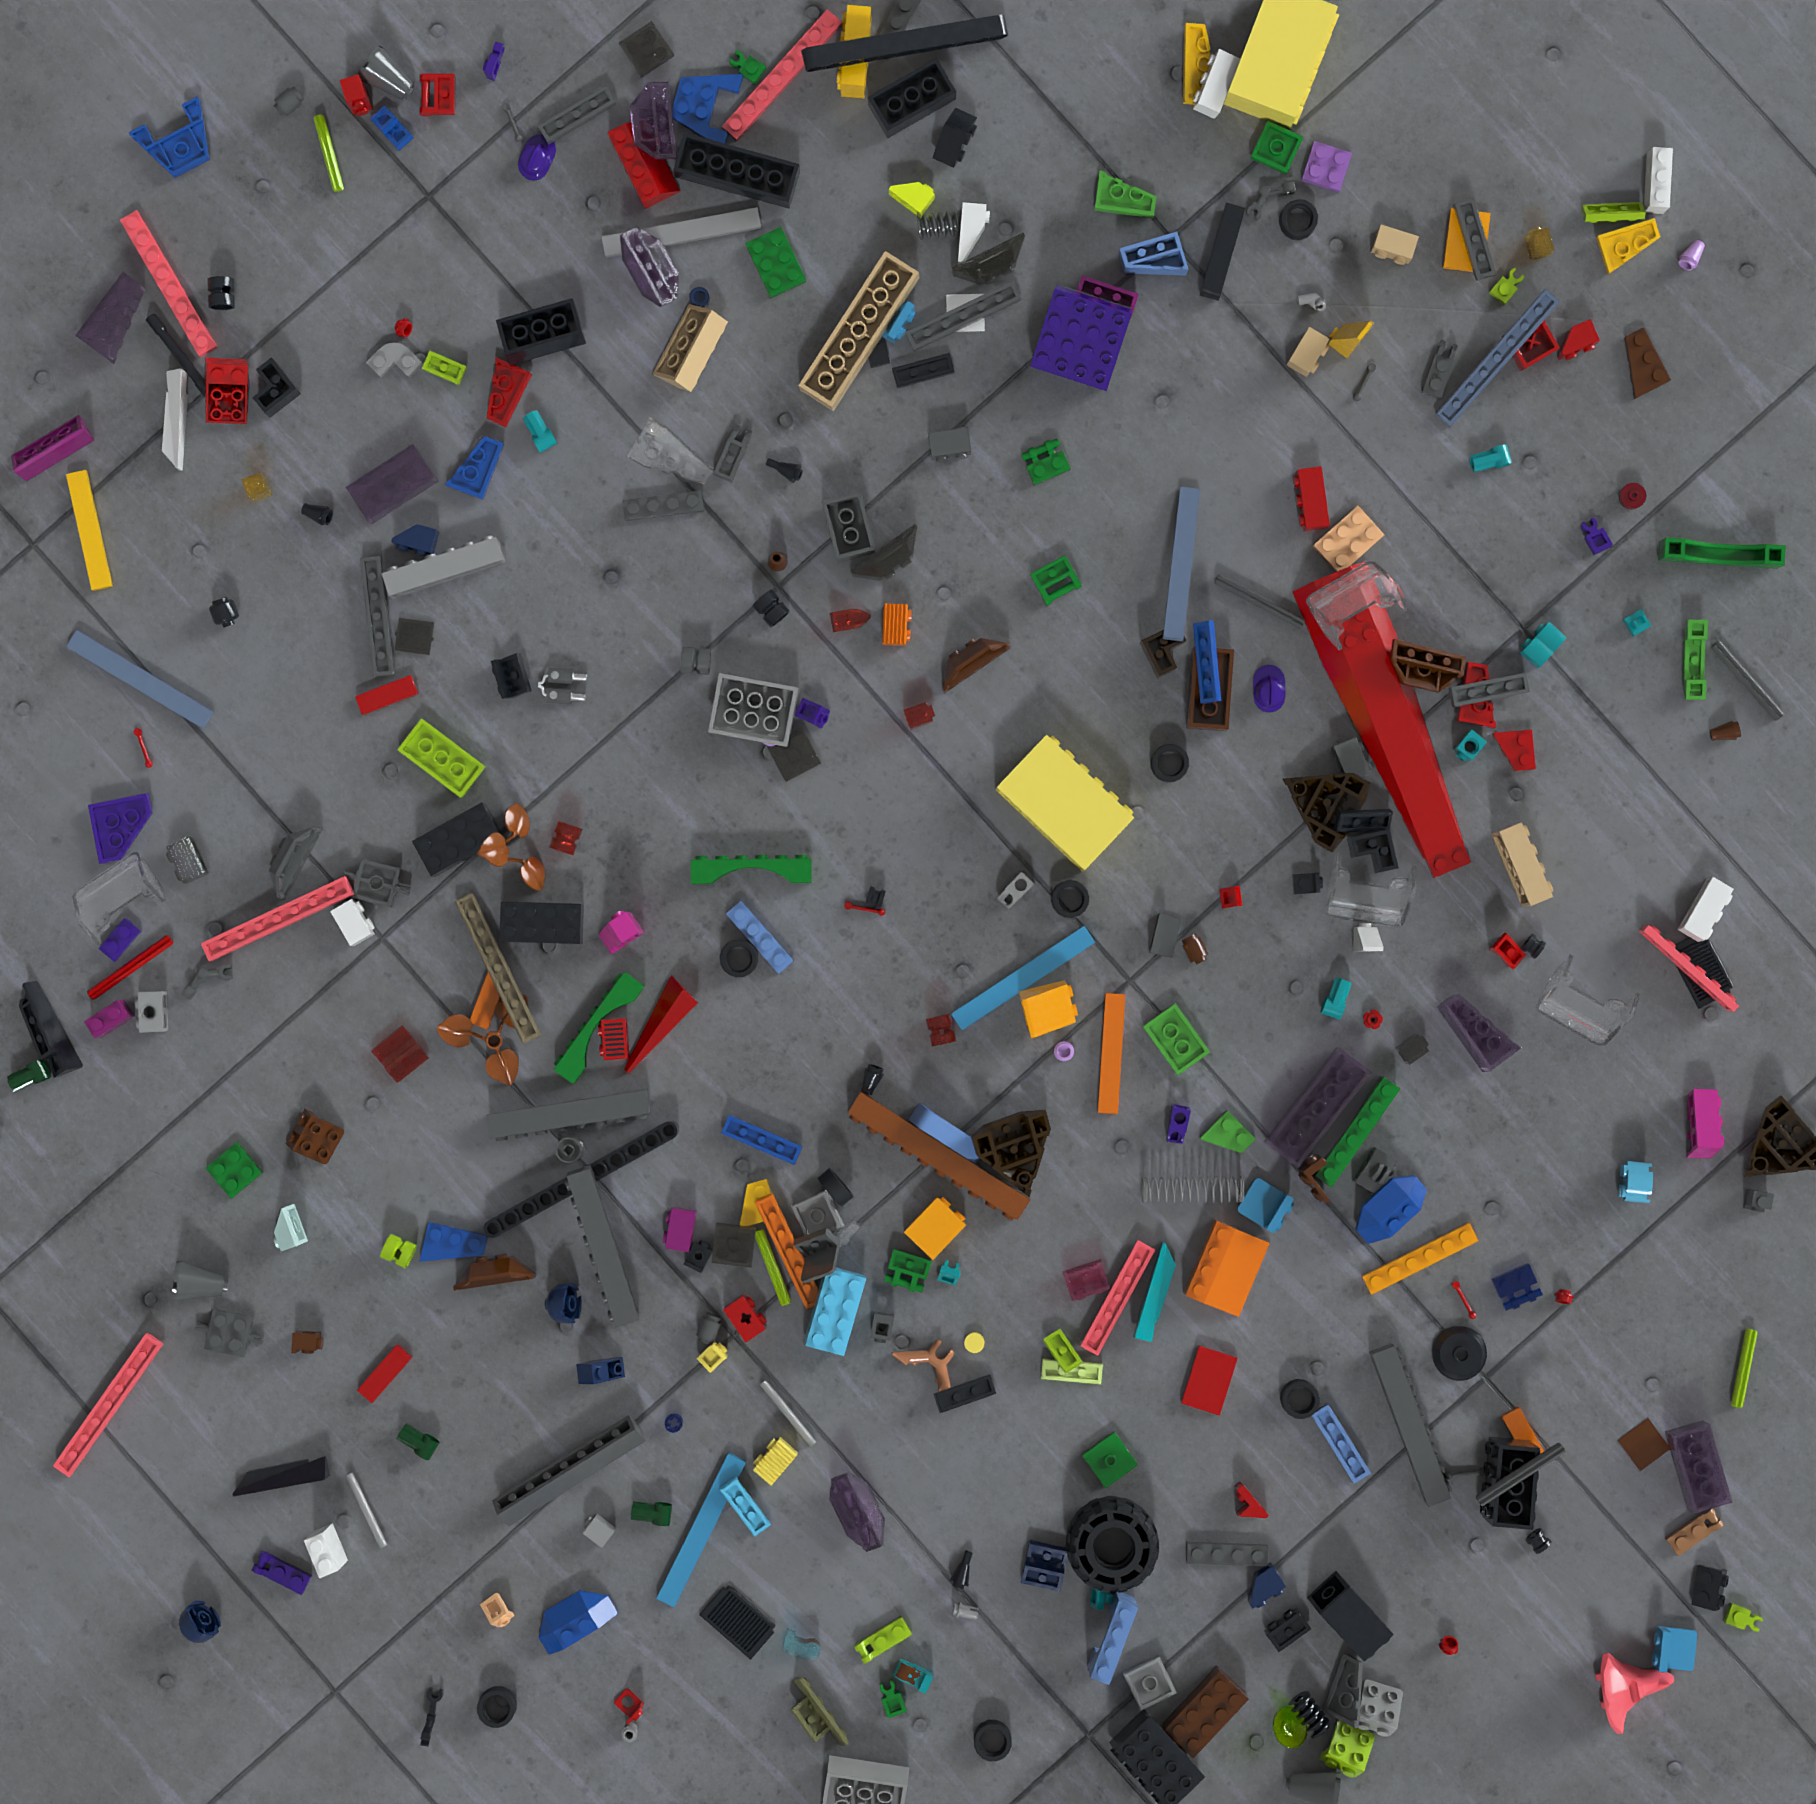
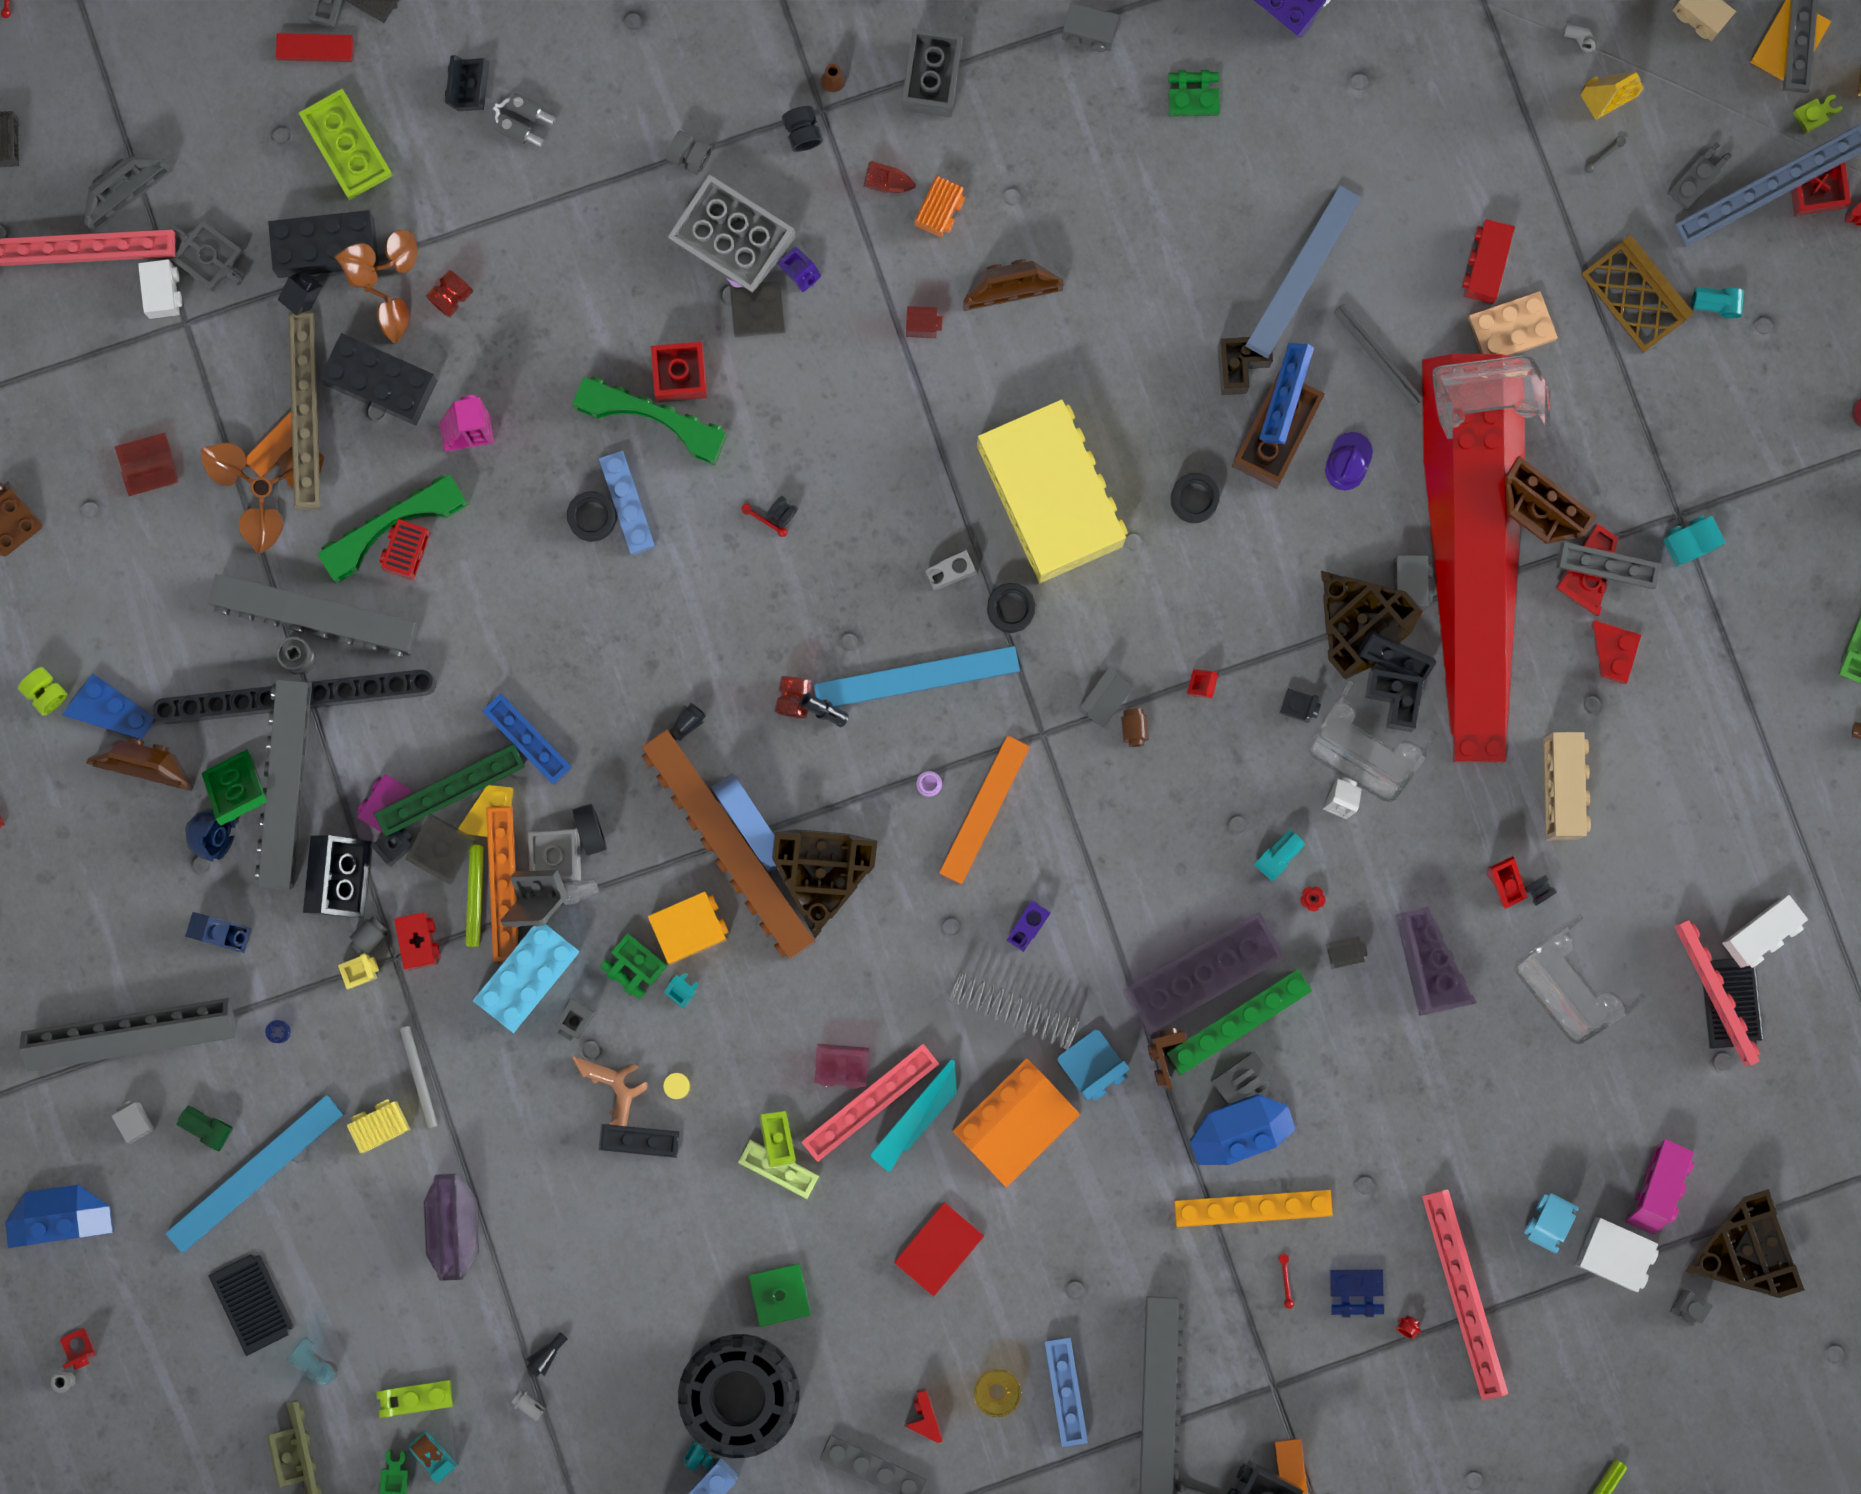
camera: 20 degrees right, 5 degrees down
(457, 883) = (299, 292): none -> black brick
(567, 1263) = (234, 787): none -> green plate
(668, 1295) = (336, 876): none -> black slope
(669, 1011) = (485, 543): red wedge -> none
(722, 1201) = (448, 790): none -> dark green plate
(745, 1506) = (319, 1166): medium azure tile -> none
(758, 827) = (679, 372): none -> red brick
(888, 558) = (964, 128): clear smoke wedge -> none
(967, 1030) = (813, 703): none -> black pin
(1044, 1565) = (647, 1391): dark blue slope -> none
(1048, 1007) = (931, 722): light orange slope -> none
(1052, 574) = (1148, 224): green plate -> none
(1176, 1039) = (1068, 824): bright green plate -> none
(1228, 1134) = (1084, 963): bright green wing -> none
(1297, 1474) = (1001, 1407): none -> clear yellow piece
(1304, 1413) = (1058, 1318): black tyre -> none
(1308, 351) = (1553, 92): tan brick -> none
(1438, 462) = (1656, 281): none -> pearl gold fence
(1459, 1353) = (1254, 1343): black piece -> none
(1477, 742) = (1568, 618): teal brick -> none
(1594, 1257) = (1465, 1295): none -> coral plate
(1596, 539) = (1806, 444): dark purple plate -> none
(1637, 622) = (1816, 562): teal tile -> none
(1691, 1184) = (1617, 1255): none -> white brick

